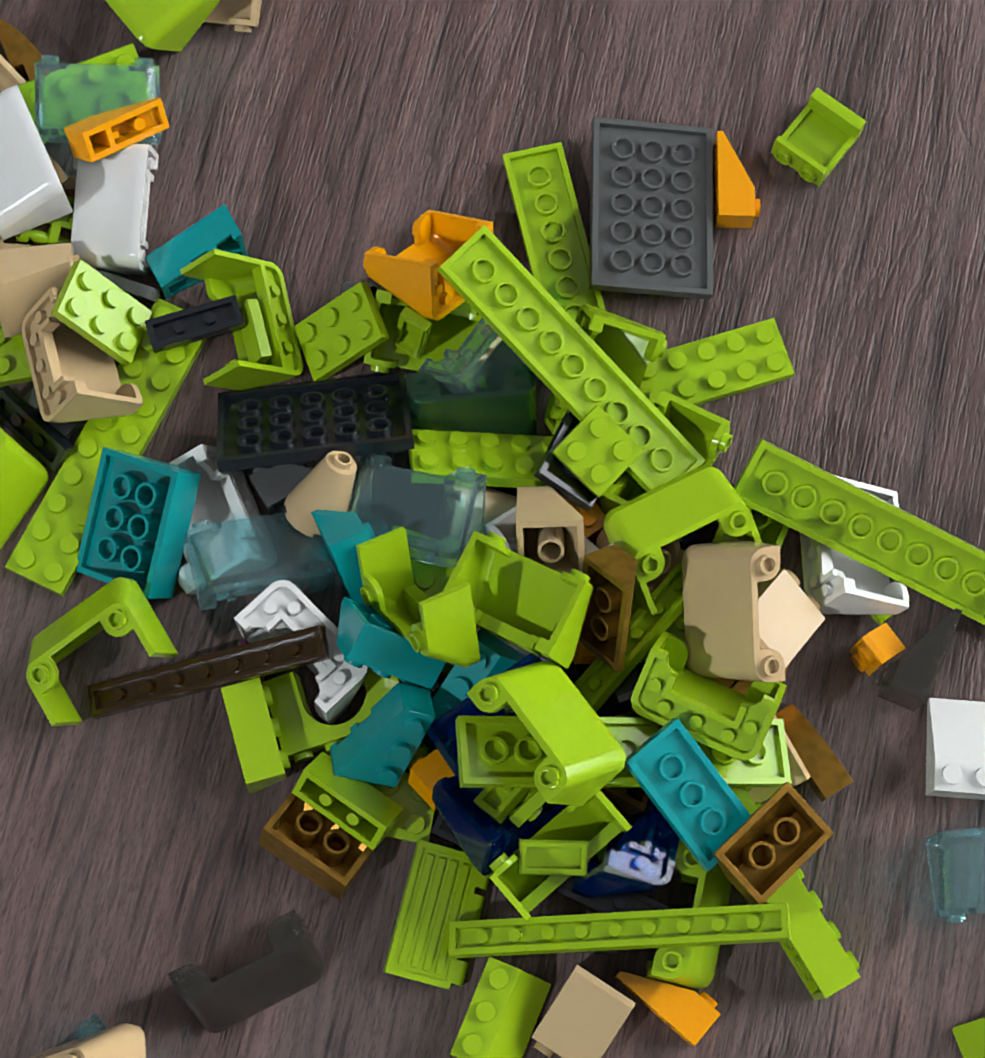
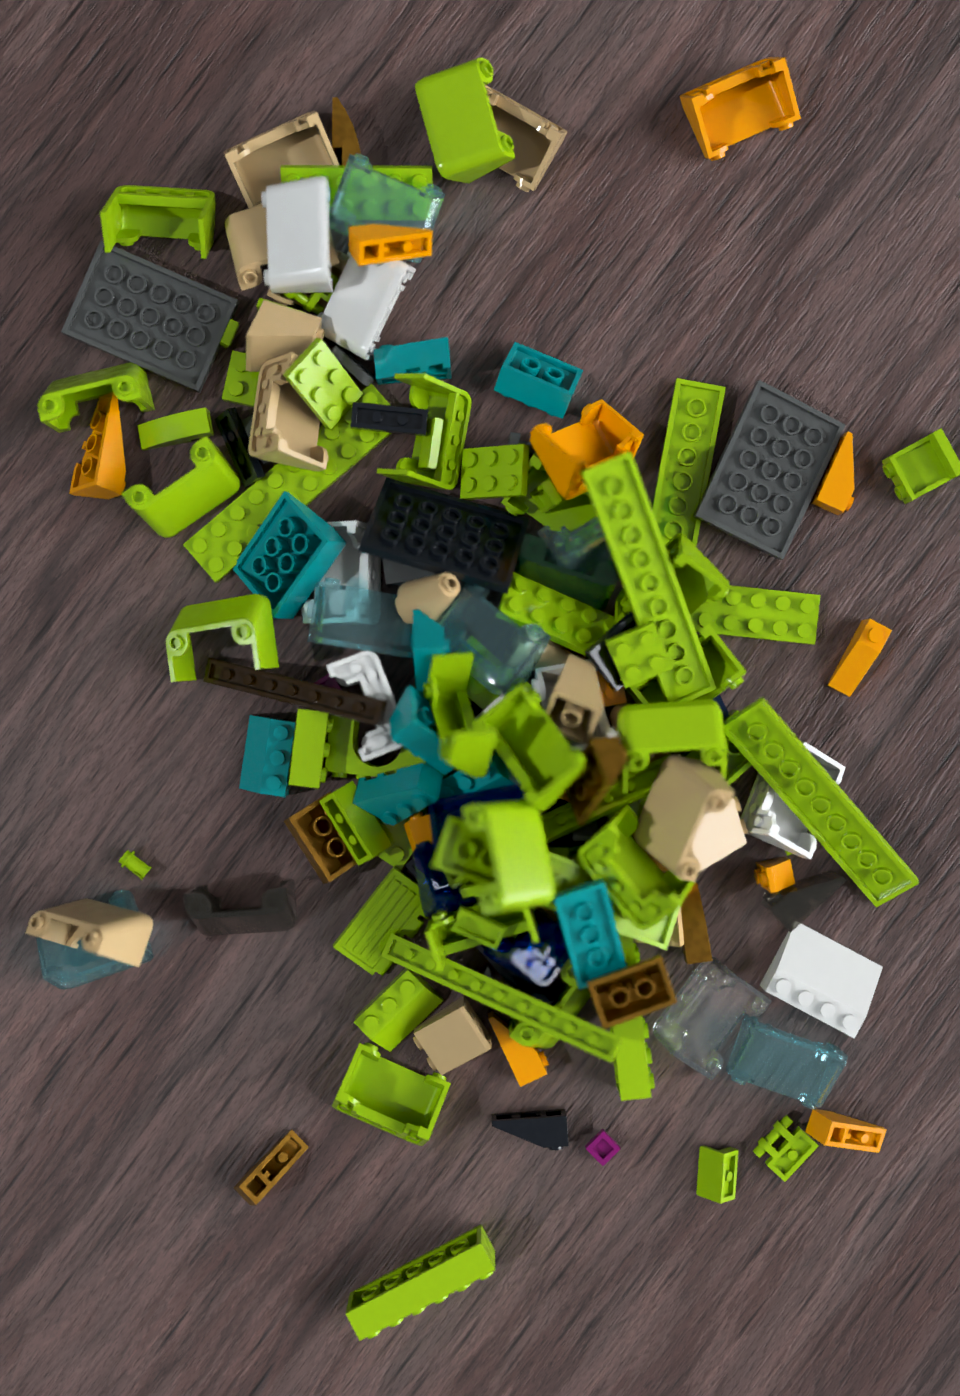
camera: 25 degrees right, 15 degrees up
(91, 981) = (134, 864): none -> lime pin
(207, 771) = (268, 756): none -> teal slope
(347, 219) = (538, 380): none -> teal slope
(850, 365) = (859, 656): none -> light orange slope
(881, 851) = (706, 1015): none -> clear windscreen

